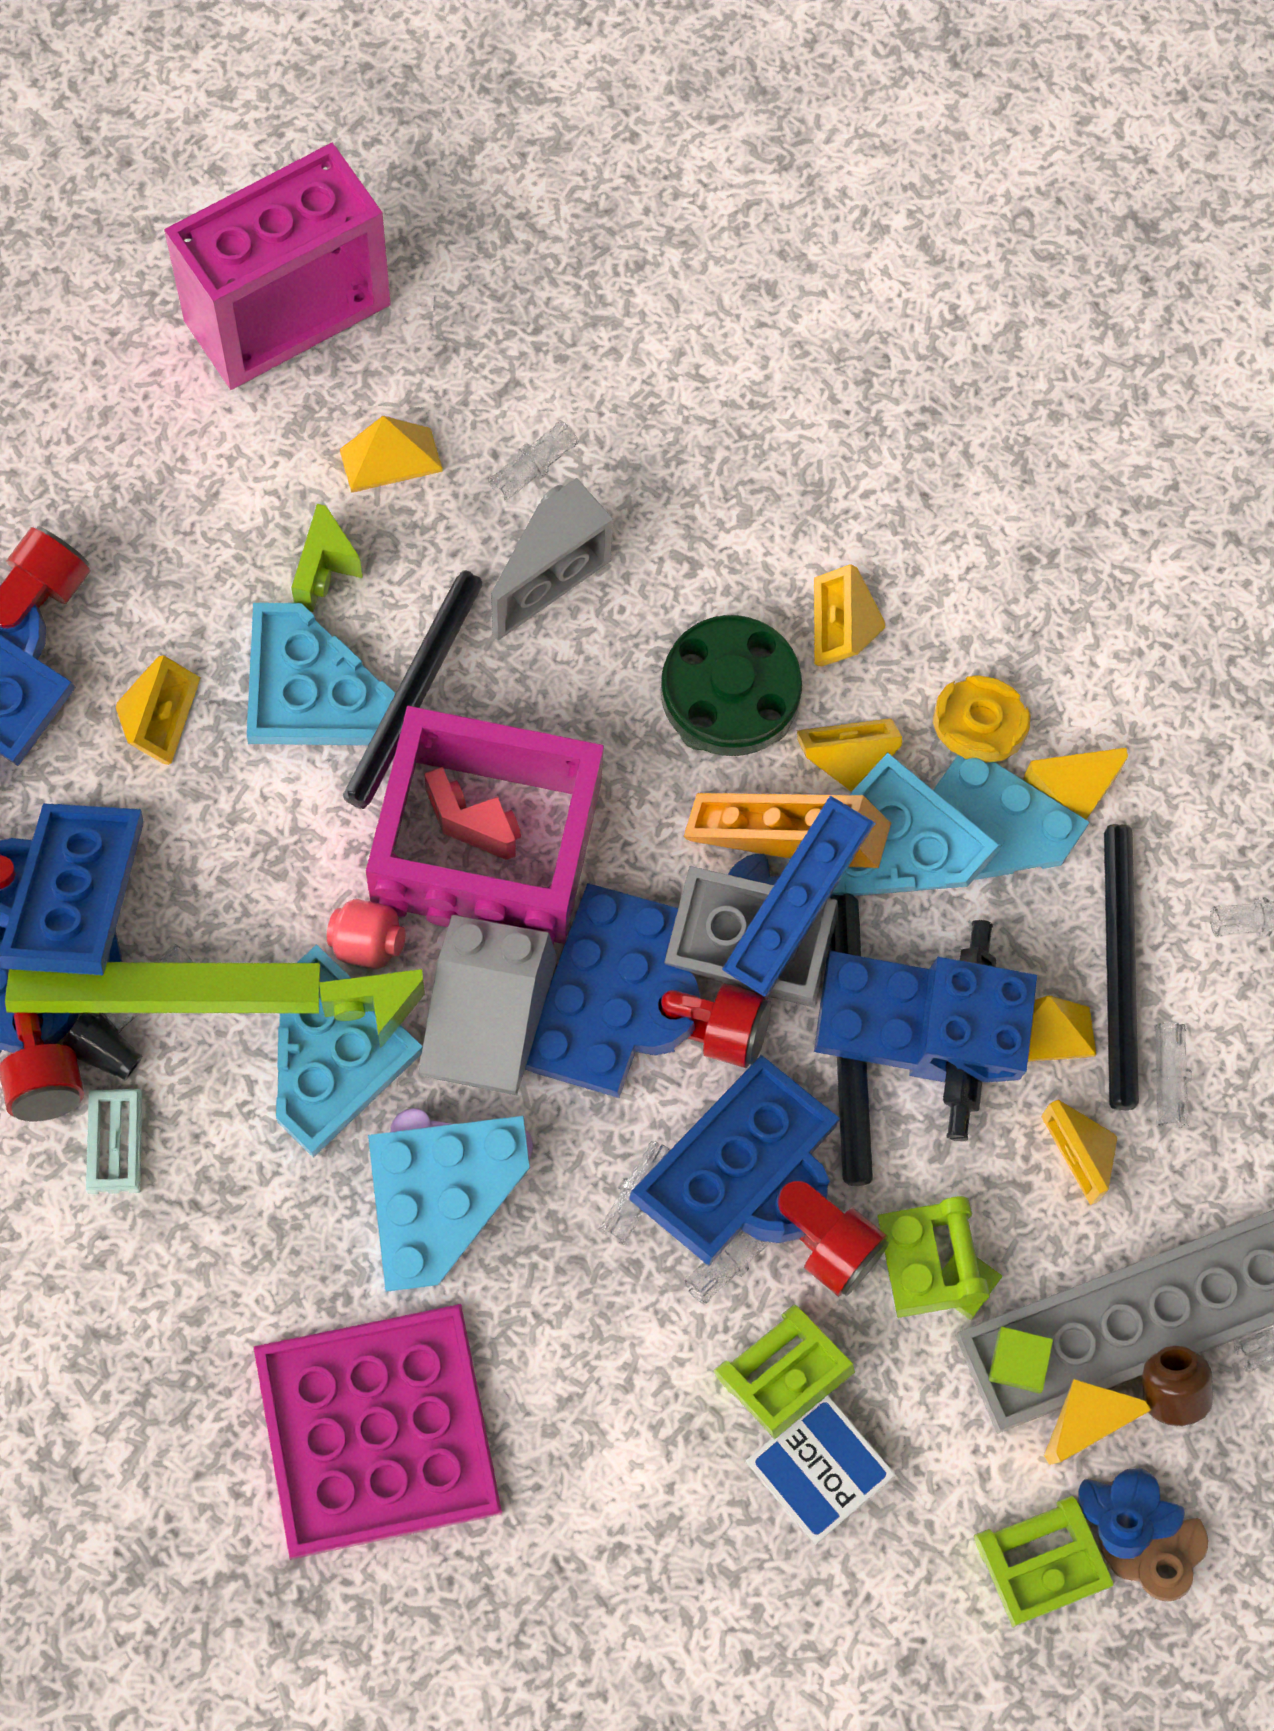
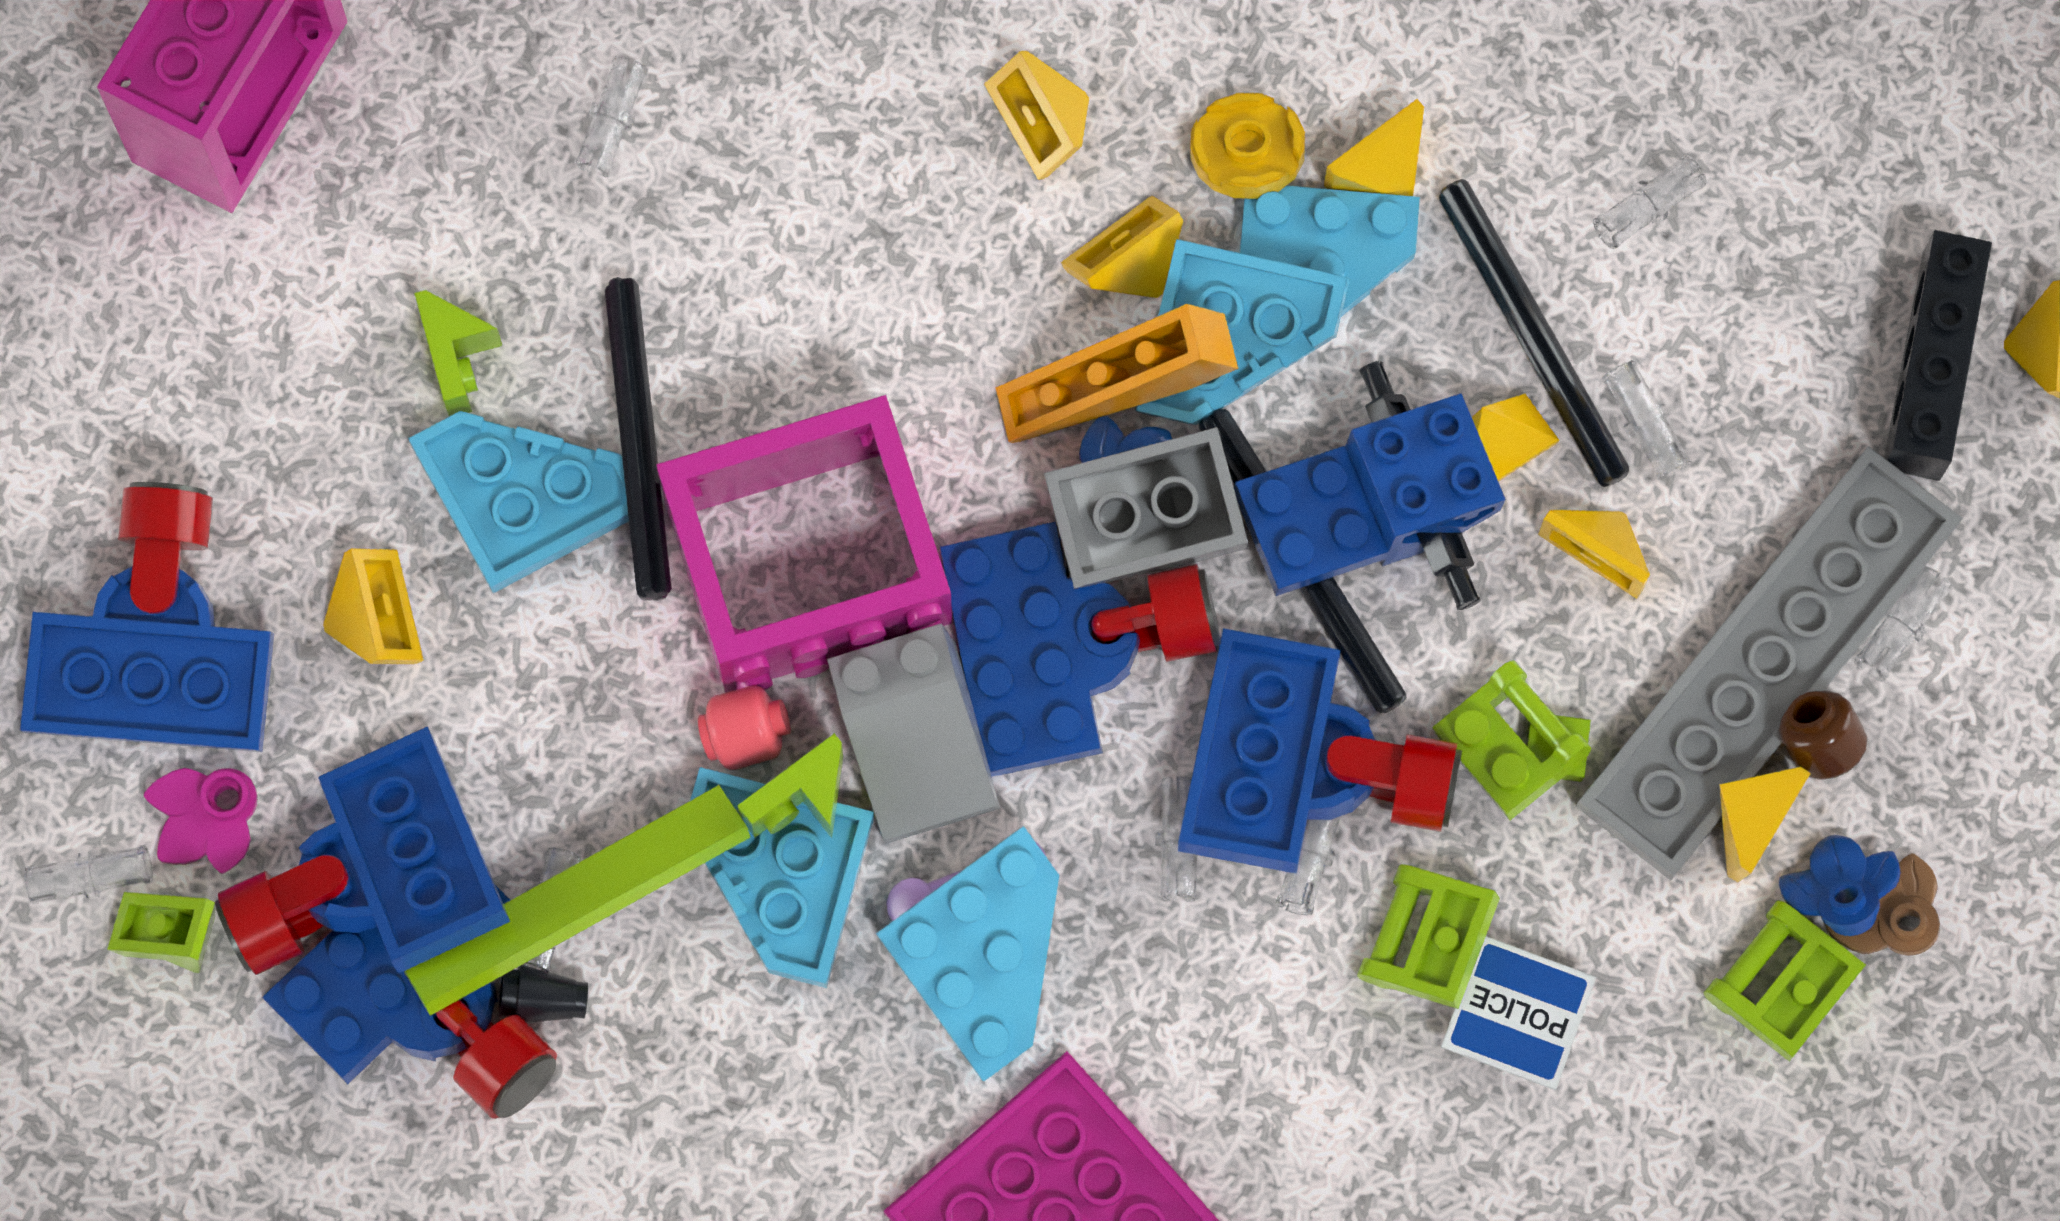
camera: 25 degrees left, 5 degrees up
(114, 1183) = (638, 1130): light aqua tile -> none
(389, 454) = (451, 194): yellow slope -> none
(479, 825) = (797, 547): coral slope -> none
(557, 551) = (706, 192): light grey slope -> none
(731, 685) = (968, 253): dark green piece -> none
(798, 896) = (1178, 445): blue tile -> none
(1020, 1360) = (1656, 794): lime tile -> none

